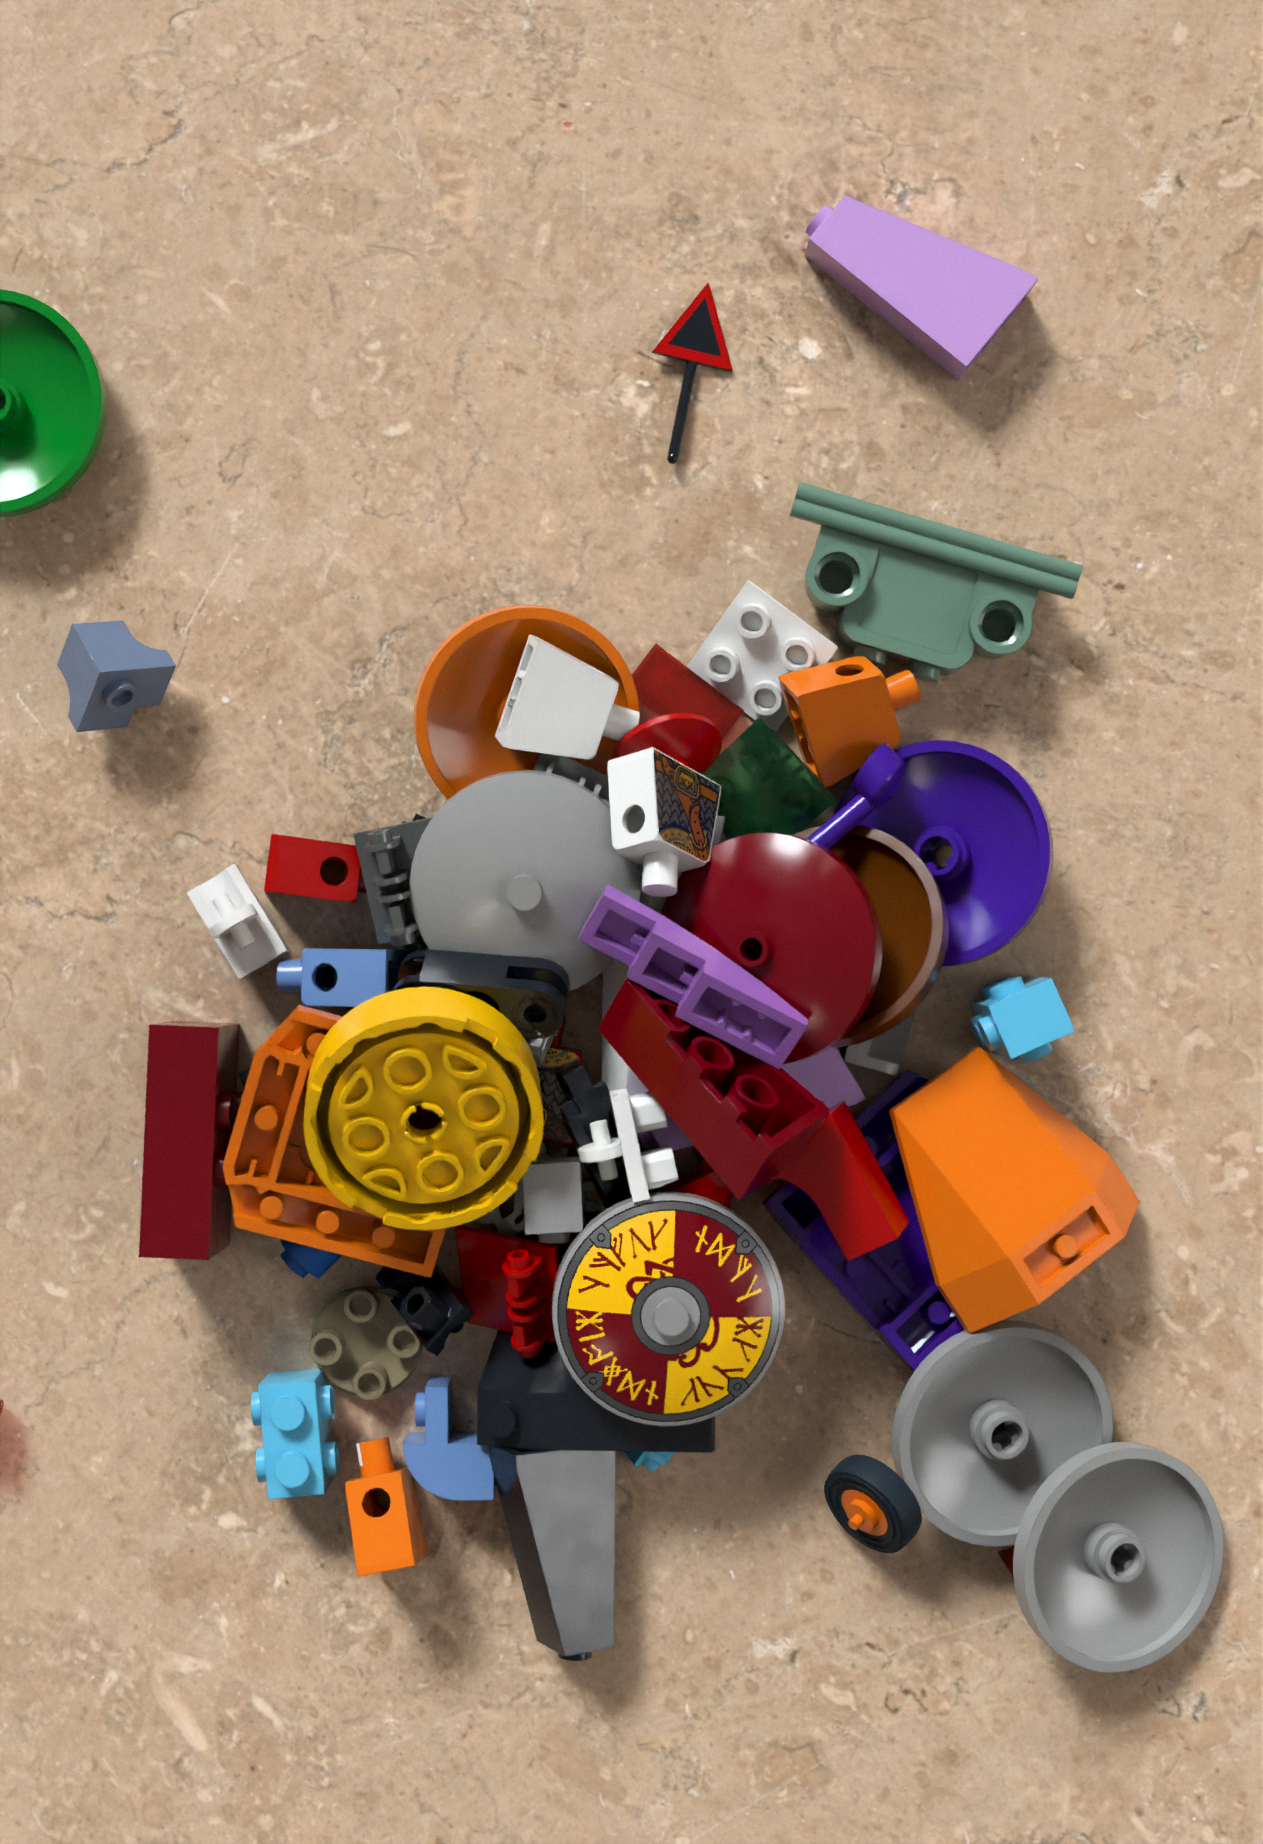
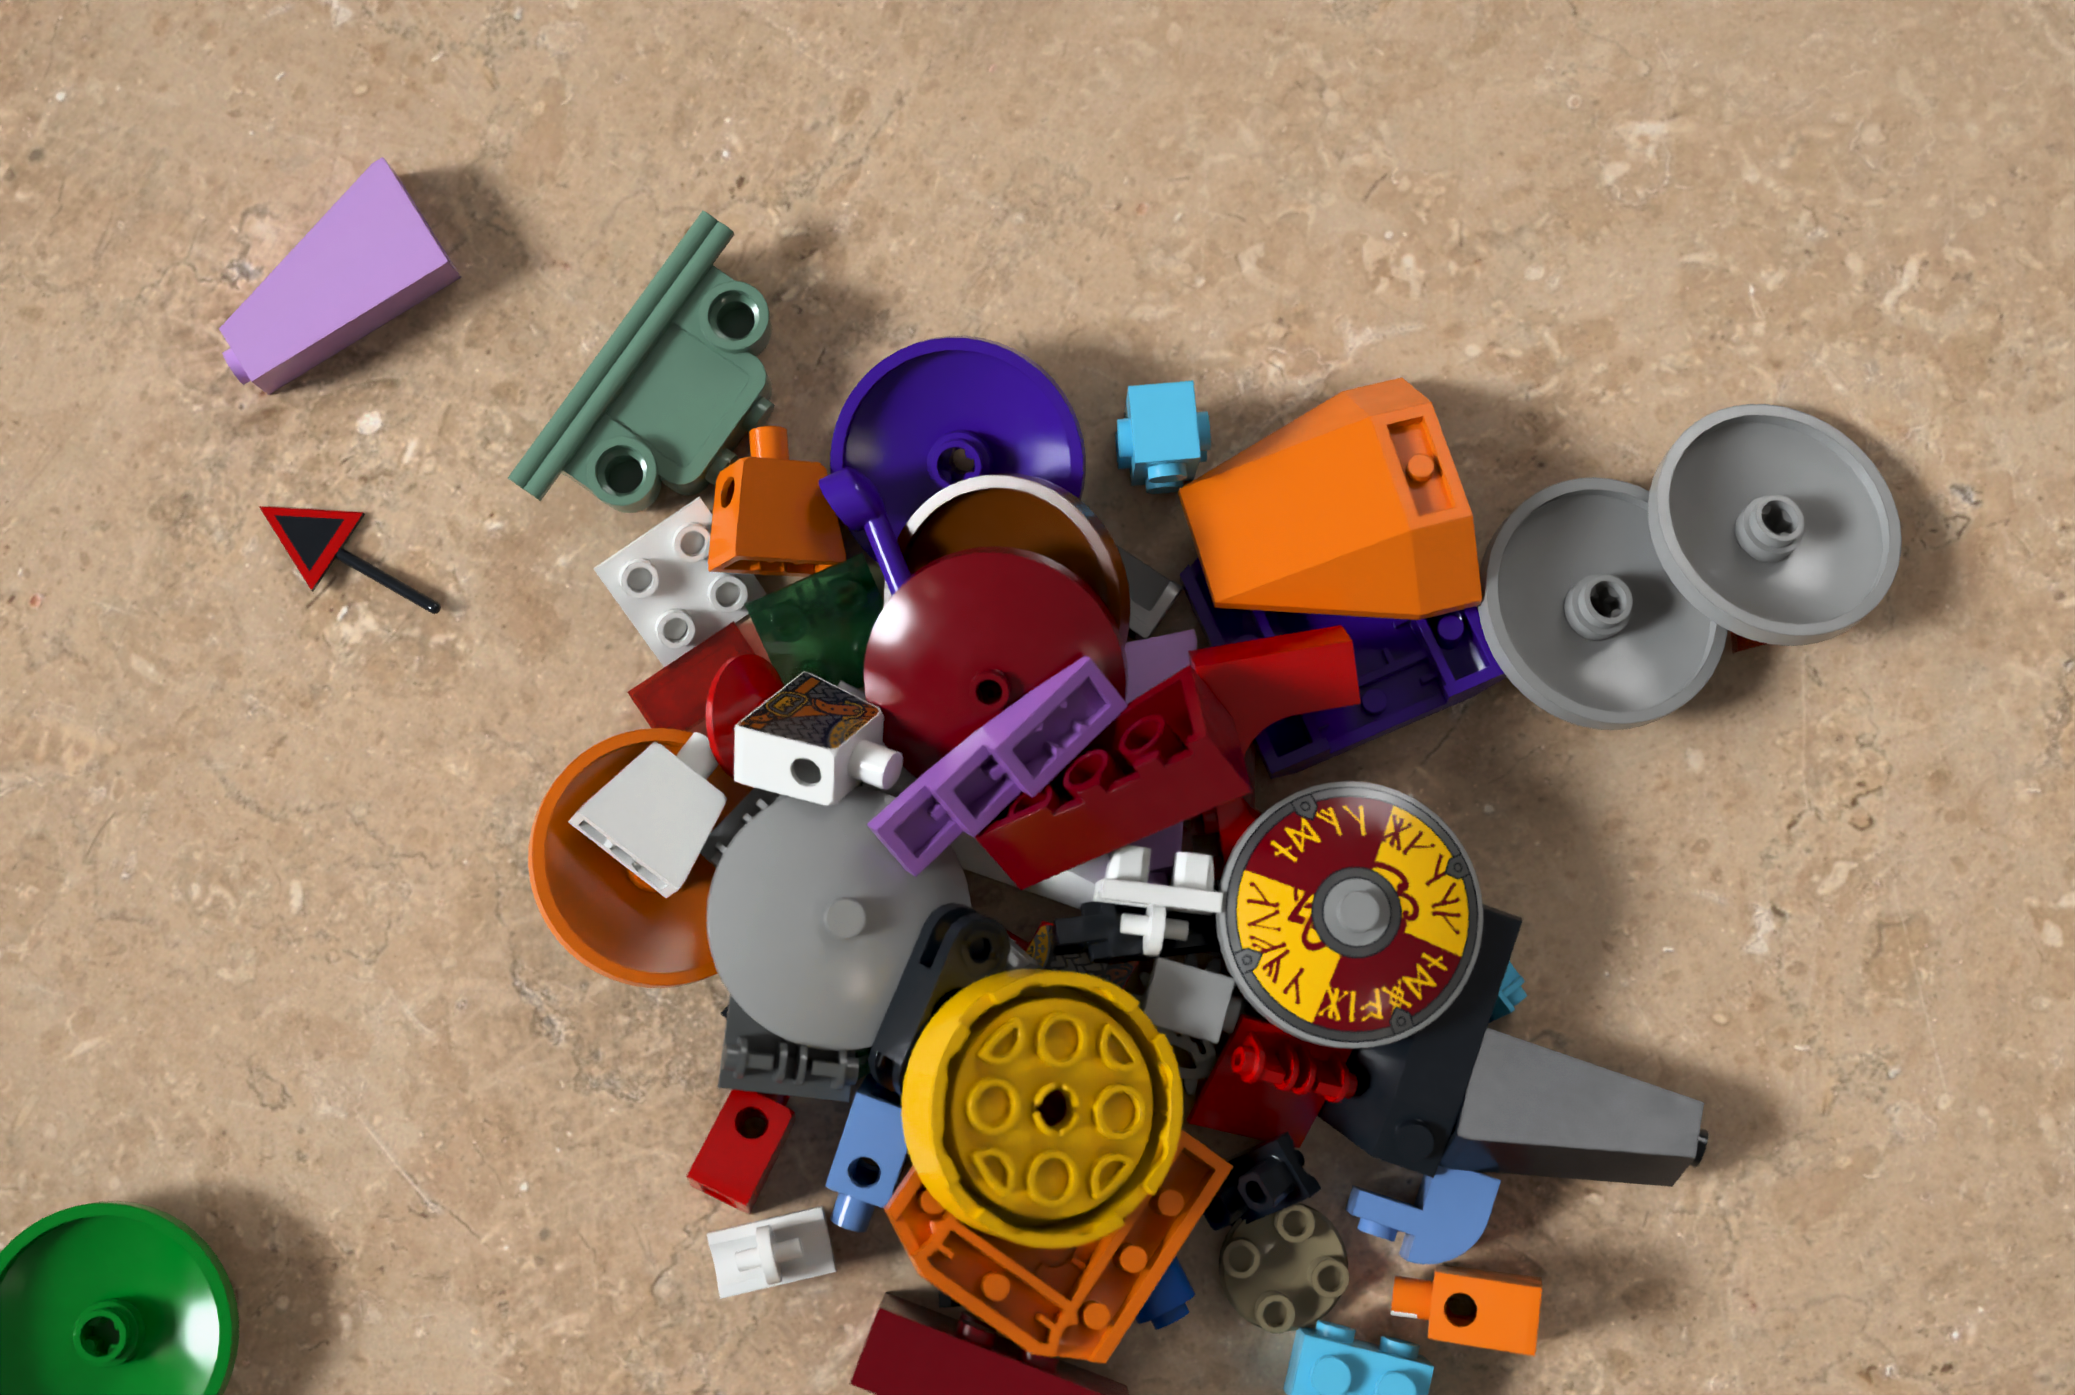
camera: 75 degrees left, 5 degrees down
(111, 675) = (451, 1302): sand blue brick -> none
(873, 1503) = (1635, 767): black wheel -> none

